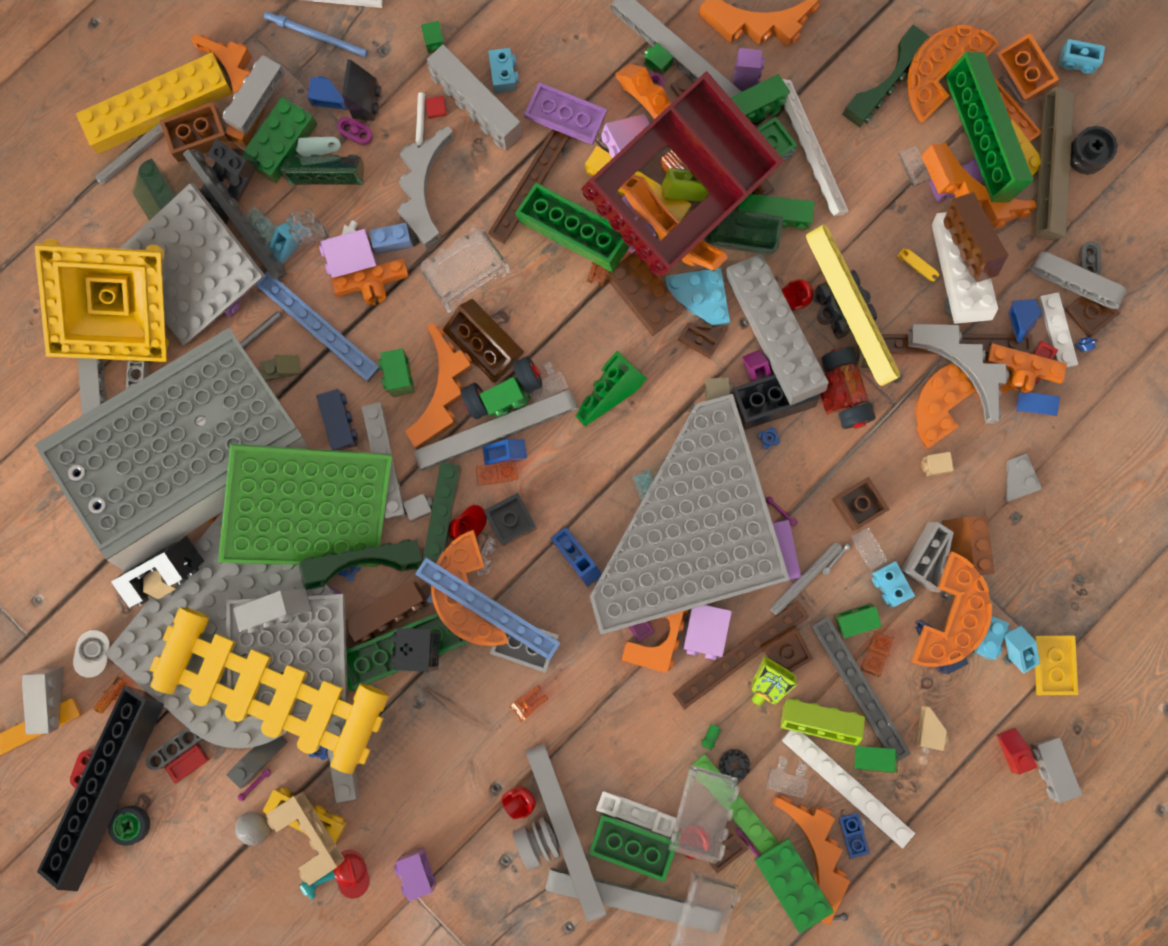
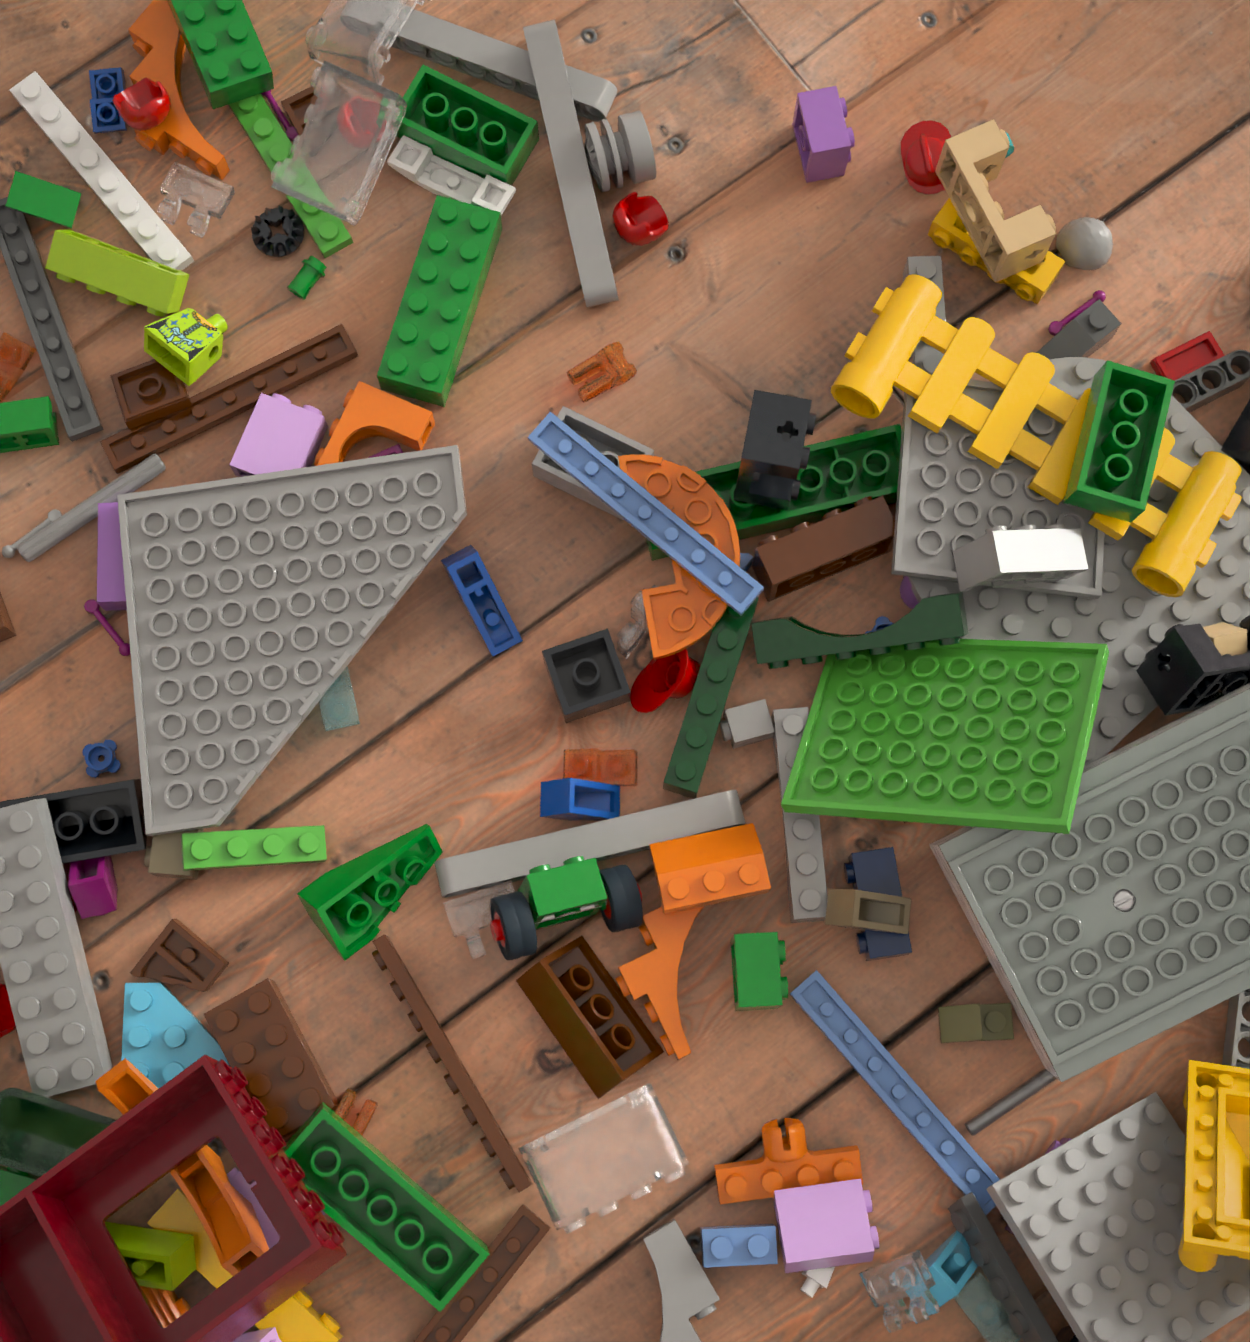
camera: 175 degrees left, 5 degrees down
(219, 685) = (1119, 441): none -> green brick
(340, 410) = (868, 911): none -> dark tan slope
(427, 421) = (709, 868): none -> orange slope
(557, 312) = (458, 1077): none -> reddish brown plate
(629, 733) = (440, 301): none -> green brick
(675, 399) = (253, 847): none -> bright green plate
(828, 827) = (143, 104): none -> red hair

